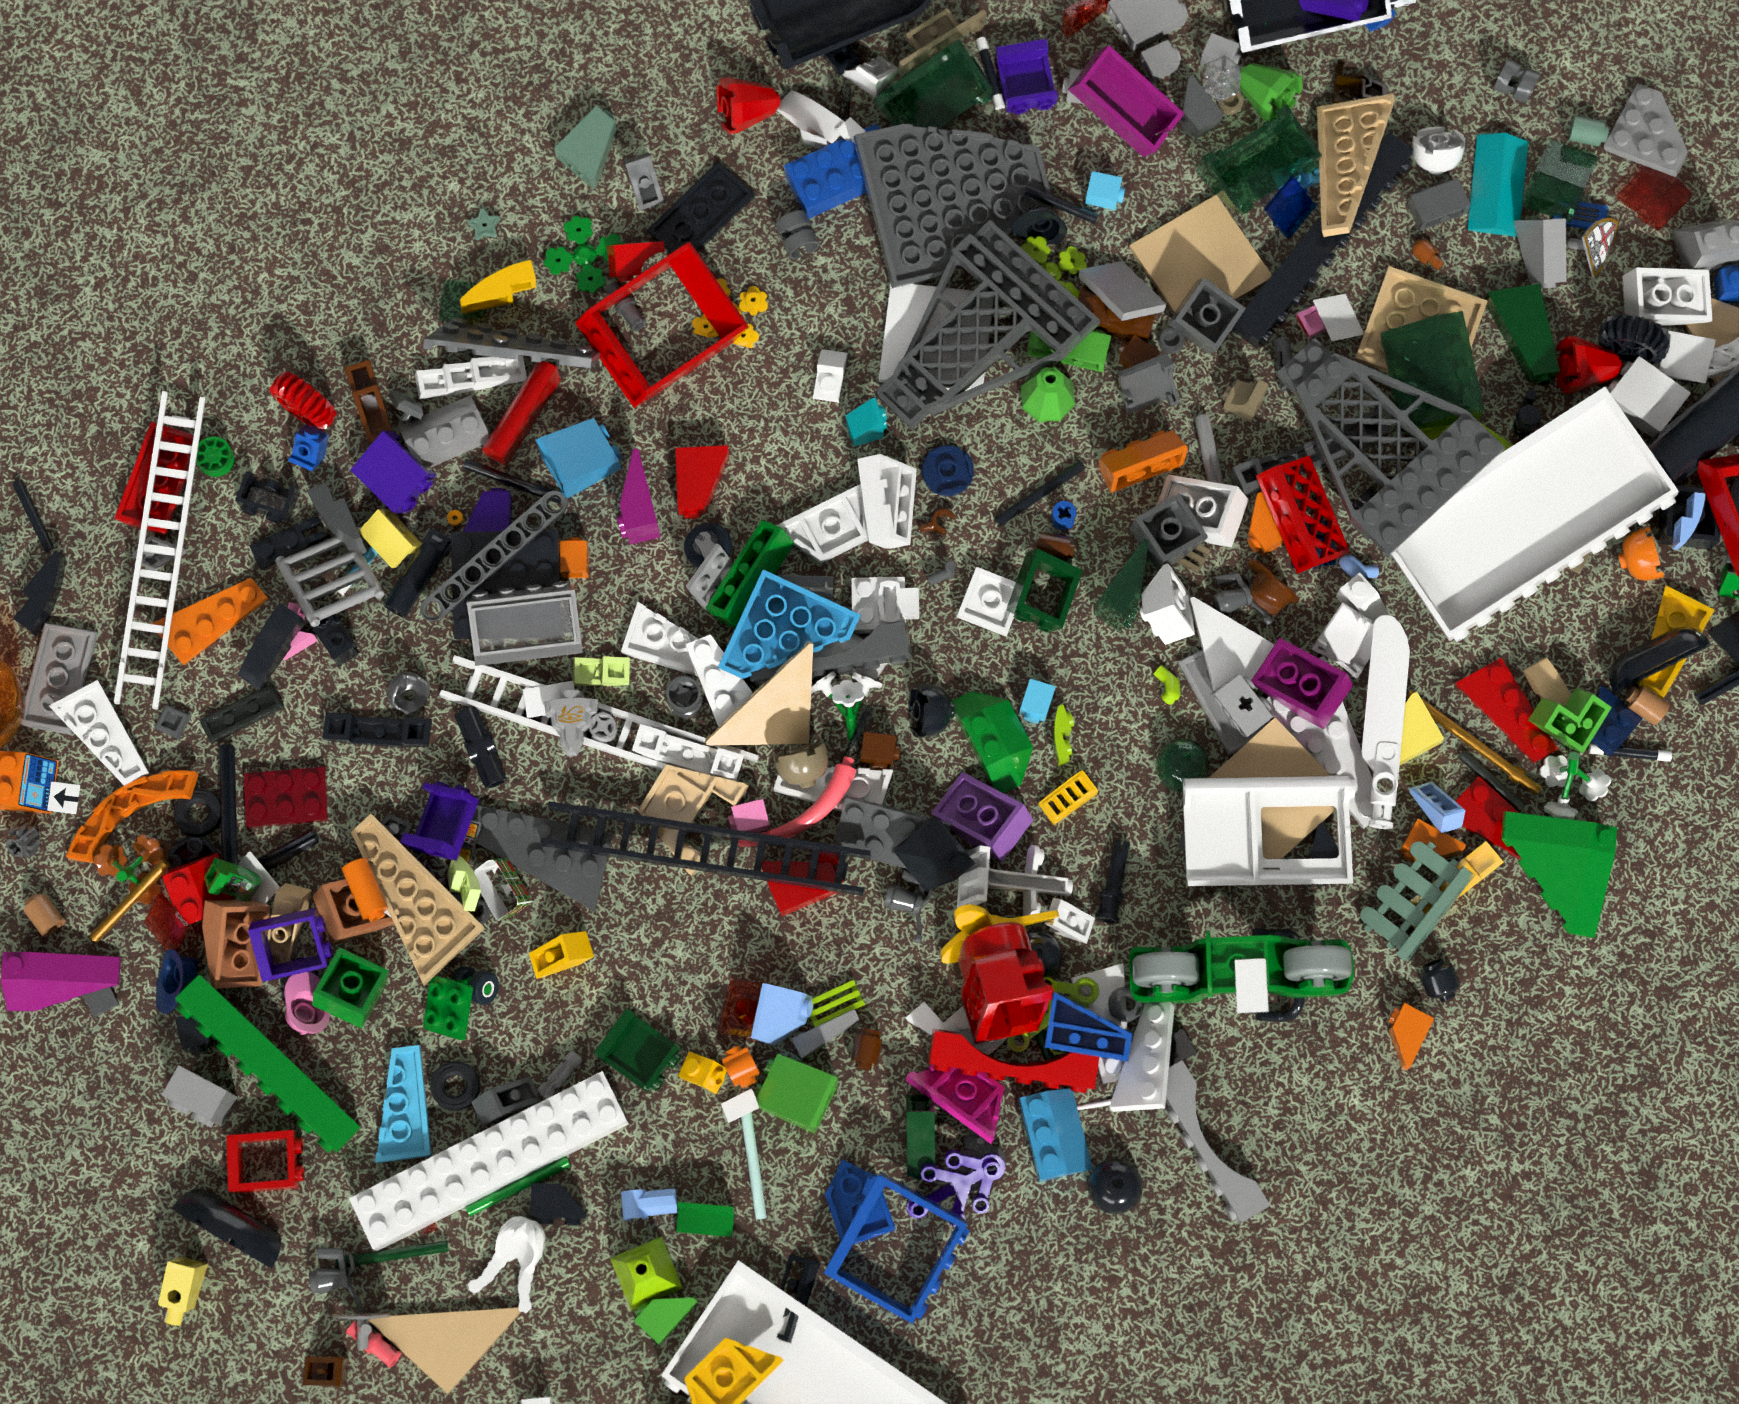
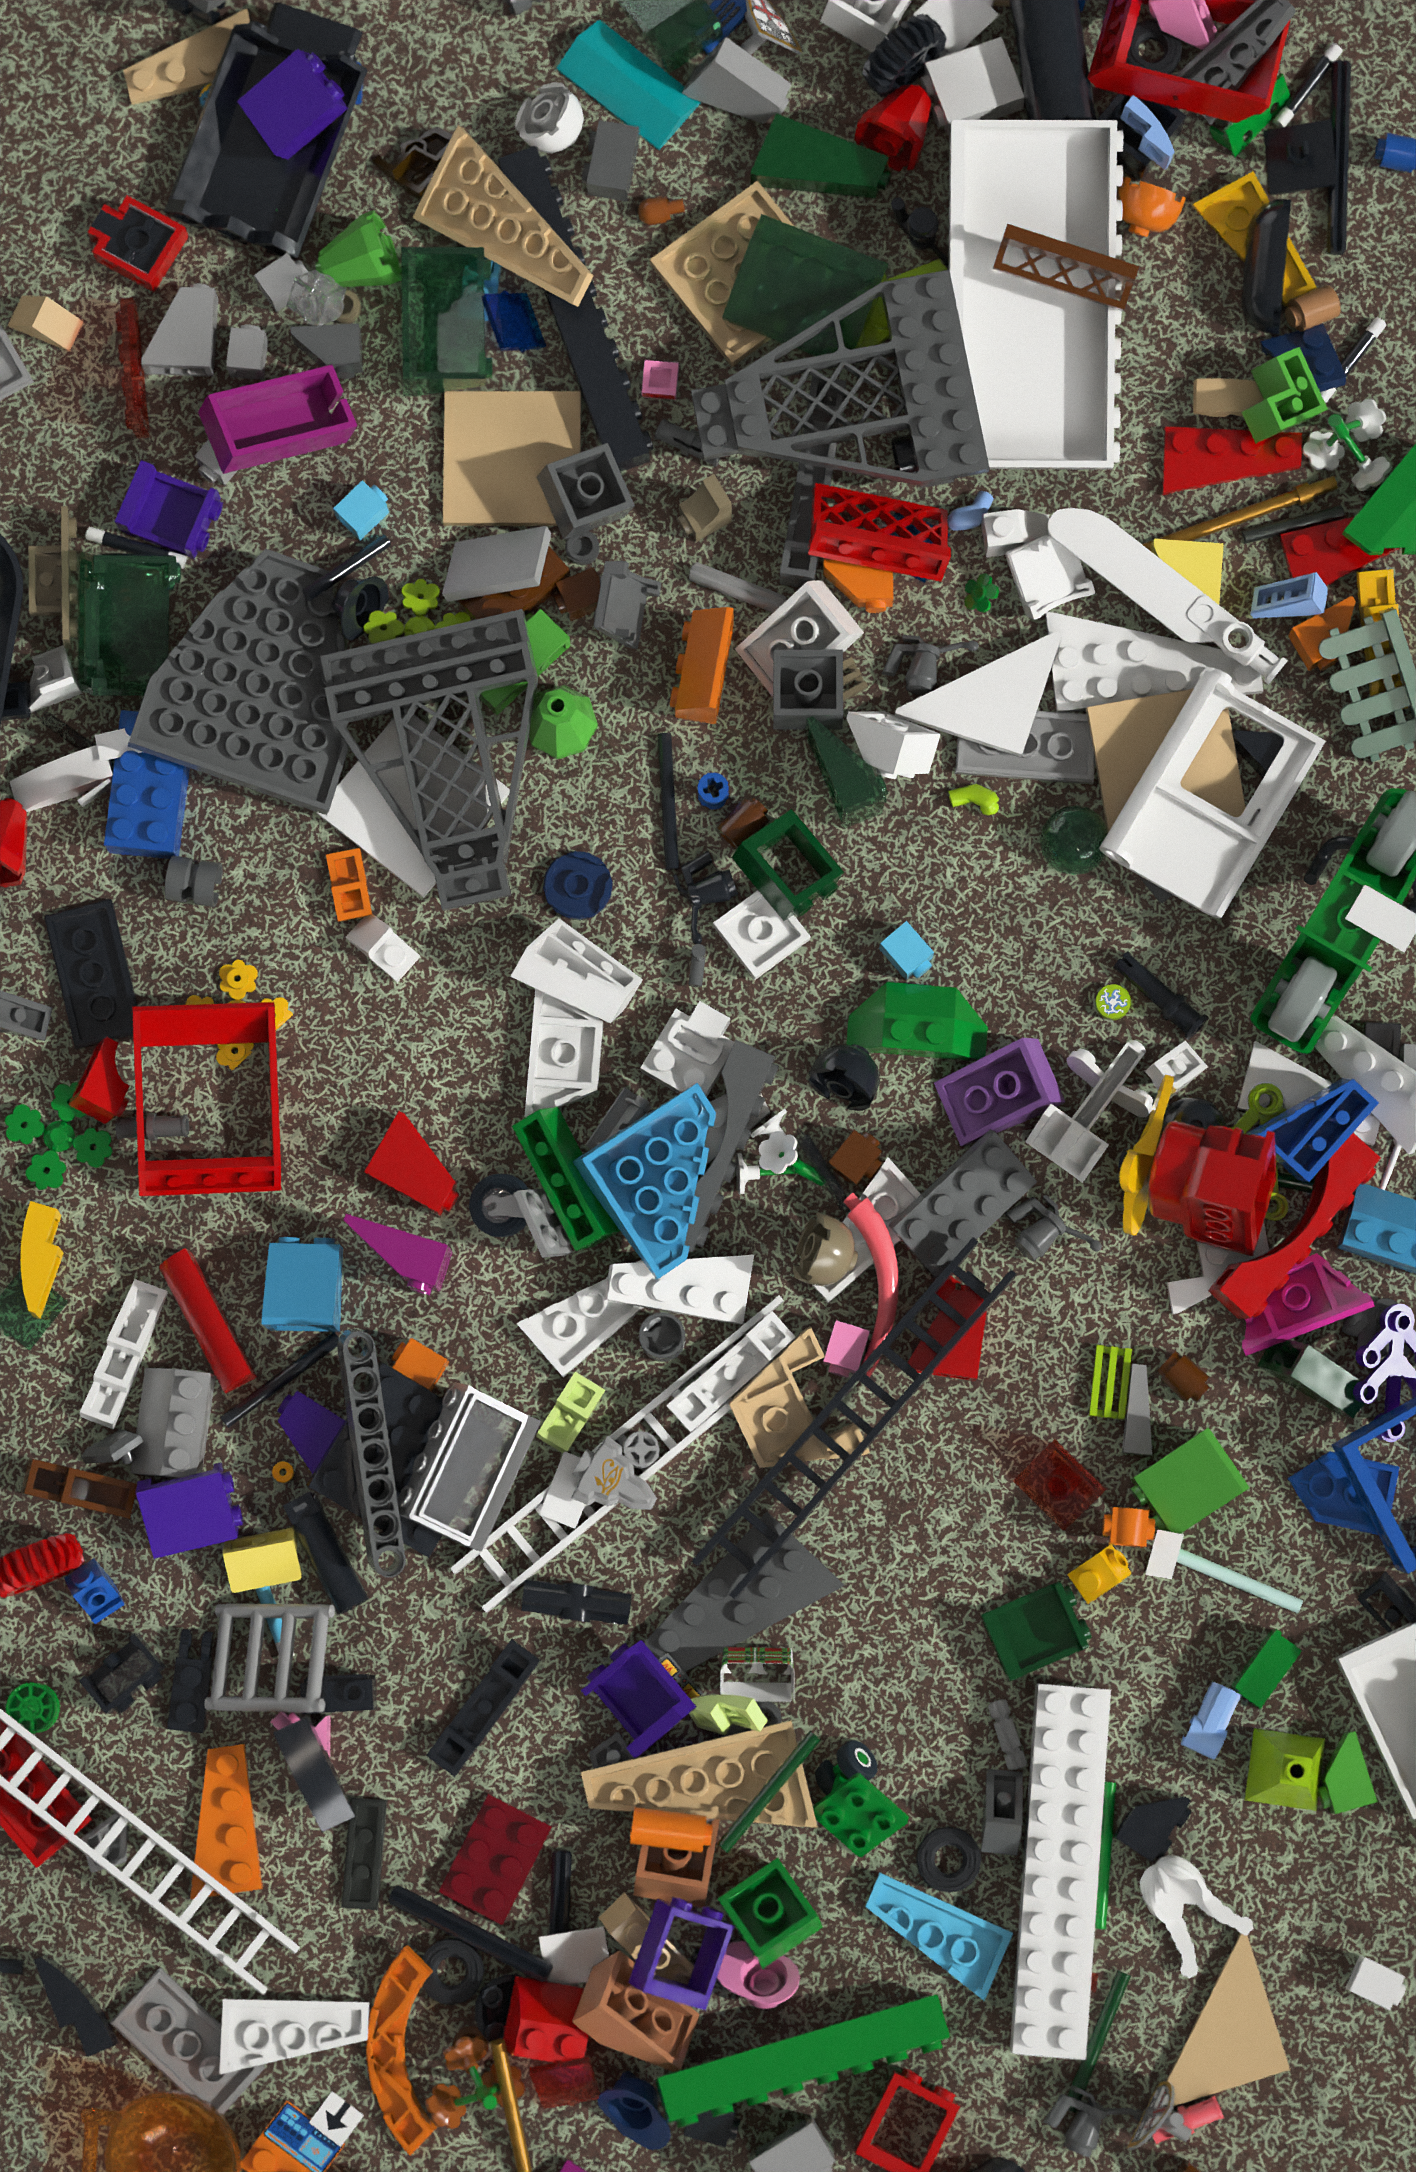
camera: 55 degrees left, 5 degrees up
(172, 722) = (324, 1940): dark grey tile -> none
(231, 880) = (563, 1977): green leg -> none
(336, 517) = (200, 1607): dark grey slope -> none
(400, 685) = (465, 1631): flat silver hair -> none
(428, 938) = (768, 1792): none -> dark green bar
(506, 343) = (118, 1289): dark grey wing -> none
(561, 954) = (872, 1652): yellow slope -> none
(776, 710) = (743, 1245): tile -> none
(780, 1013) = (1090, 1445): light blue slope -> none
(857, 330) = (349, 884): none -> orange slope
(866, 422) = (470, 940): teal slope -> none
(932, 524) = (631, 941): reddish brown piece -> none
(933, 855) = (1019, 1170): black slope -> none
(999, 554) = (711, 889): none -> black piece
(1062, 728) = (951, 942): lime slope -> none
(1073, 805) = (1033, 956): yellow slope -> none
(1089, 855) = (1112, 1002): none -> lime tile
(1116, 1009) = (1300, 1079): dark grey piece -> none
(1244, 720) = (1036, 741): light grey brick -> none
(1269, 591) = (940, 624): reddish brown piece -> none
(1302, 683) = (1068, 653): magenta slope -> none
(1308, 605) = (980, 592): none -> green plant
(1338, 317) = (673, 351): white sticker -> none
(1567, 516) = (1067, 254): none -> reddish brown fence

